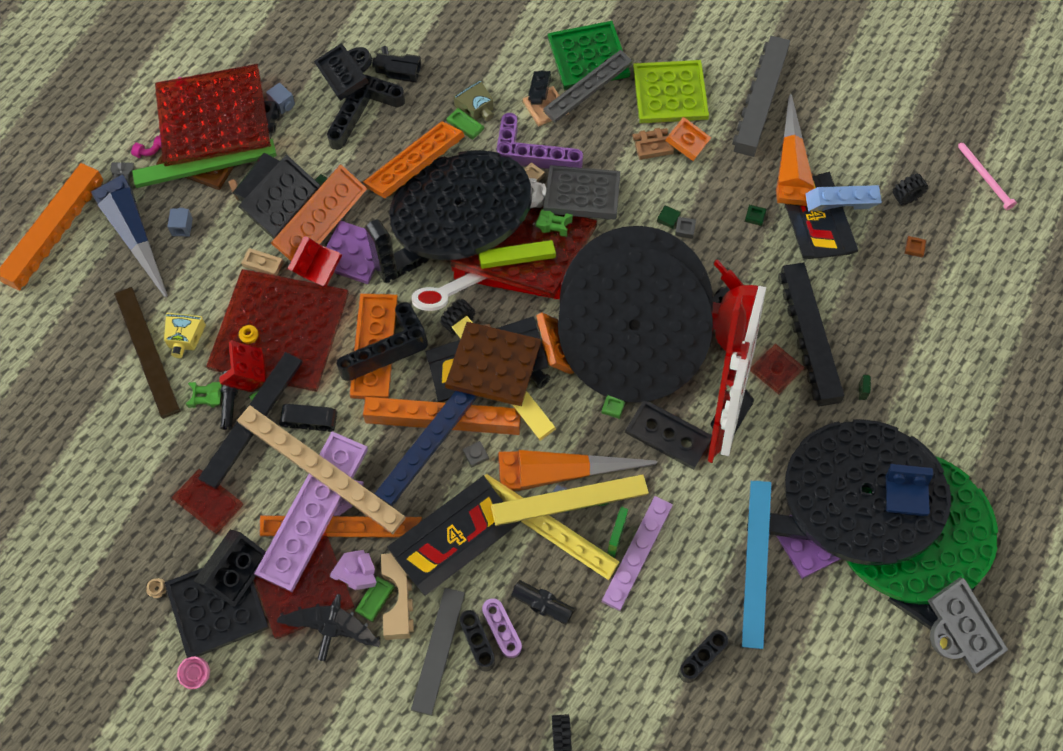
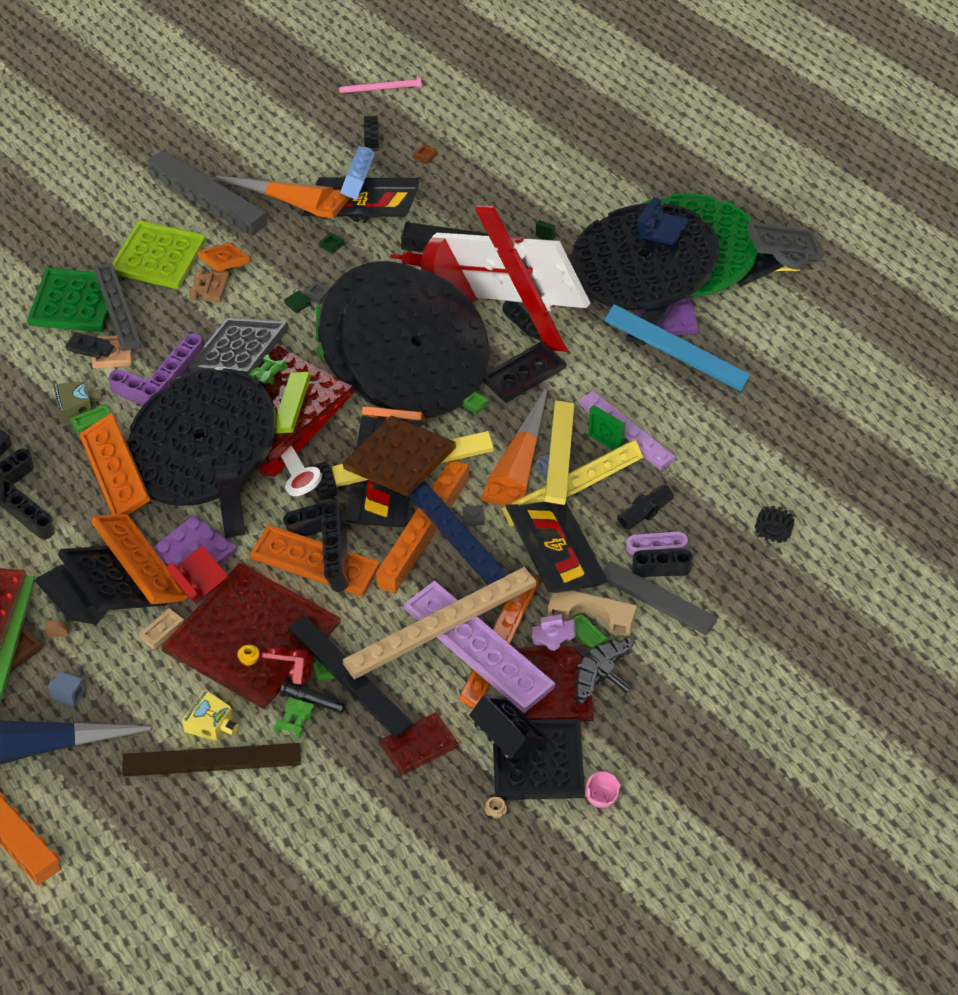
camera: 70 degrees left, 15 degrees down
(307, 417) = (369, 630): black beam -> none
(707, 647) = (741, 413): black beam -> none

